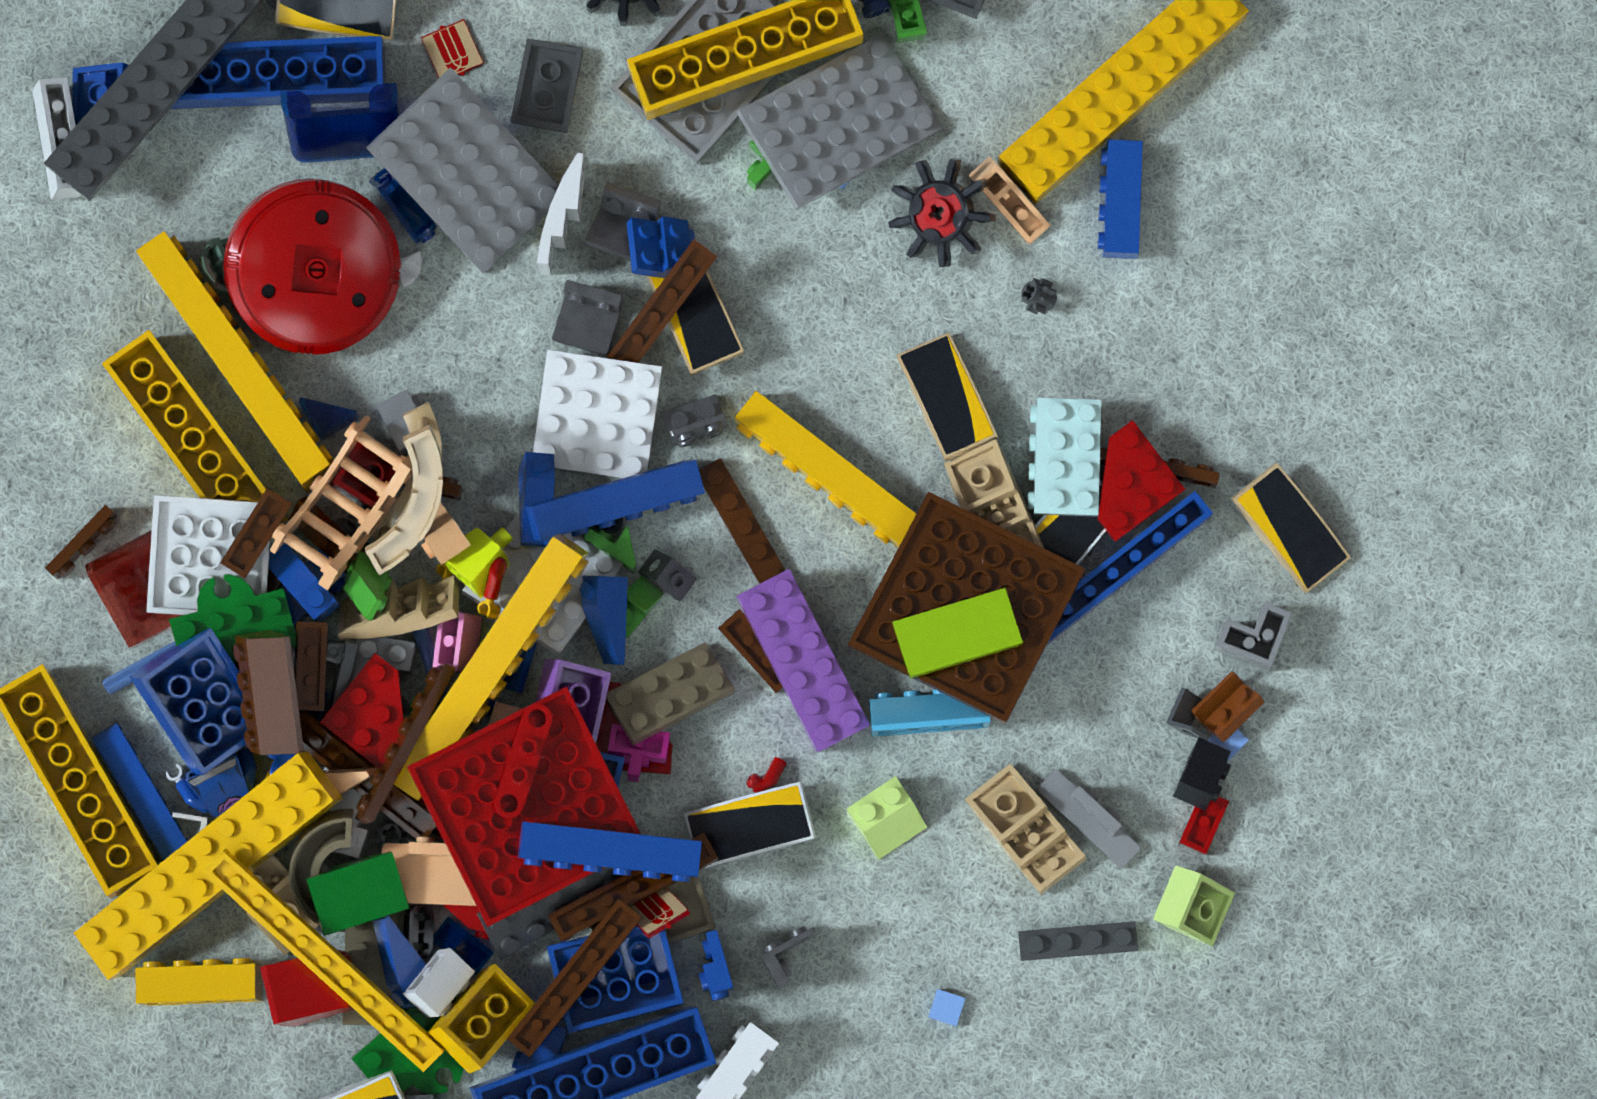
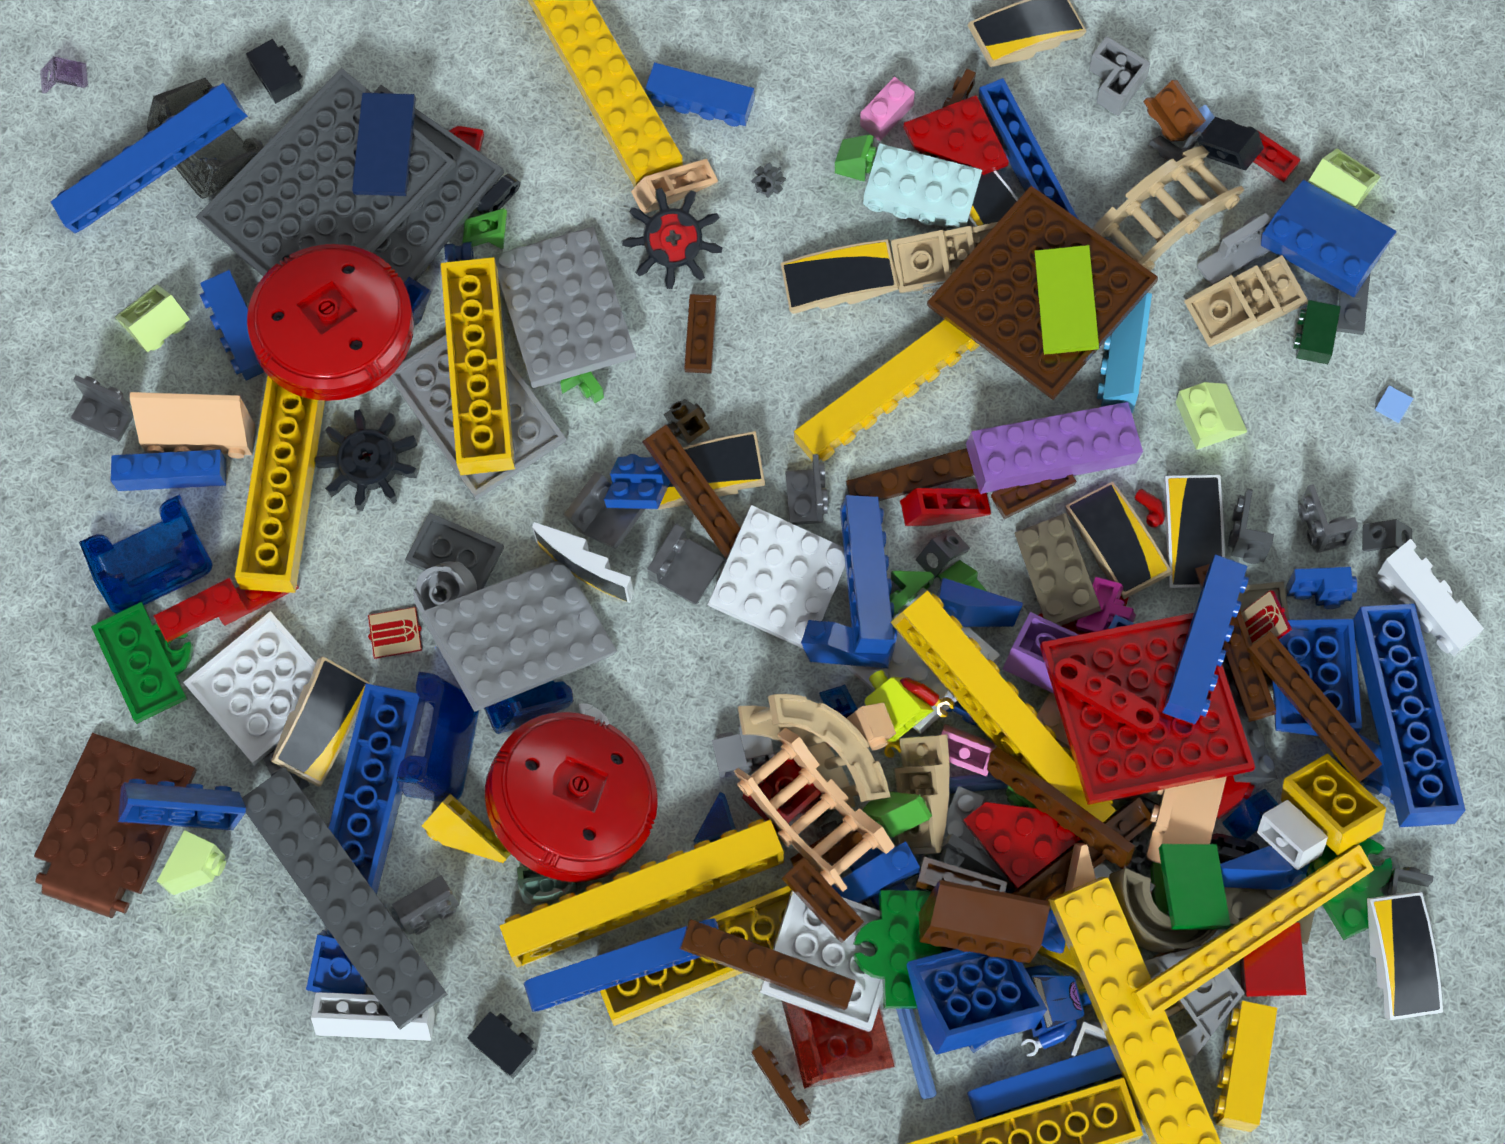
camera: 70 degrees left, 10 degrees down
(62, 267) = (502, 1044): none -> black brick
(154, 360) = (609, 969): none -> blue beam
(178, 495) = (767, 964): none -> reddish brown plate
(182, 157) = (426, 905): none -> flat silver bracket
(245, 932) = (1206, 1004): none -> light grey wing
(261, 167) = (460, 829): none -> yellow slope
(476, 507) = (839, 700): none -> clear blue slope
(500, 85) = (448, 576): none -> light grey brick
(715, 564) = (943, 506): none -> red slope
(721, 749) = (1118, 539): none -> black slope
(741, 885) = (1248, 543): none -> dark grey bracket
(742, 279) = (686, 420): none -> dark brown brick
(793, 1025) = (1384, 535): none -> dark grey bracket
(847, 269) = (700, 333): none -> reddish brown plate
(951, 21) = (499, 194): none -> black beam
(1006, 910) = (1317, 332): none -> dark green brick
(1085, 379) = (855, 157): none -> bright green slope
(1115, 899) = (1327, 237): none -> blue slope
(1123, 700) = (1153, 186): none -> tan fence
(1154, 400) = (887, 108): none -> bright pink brick

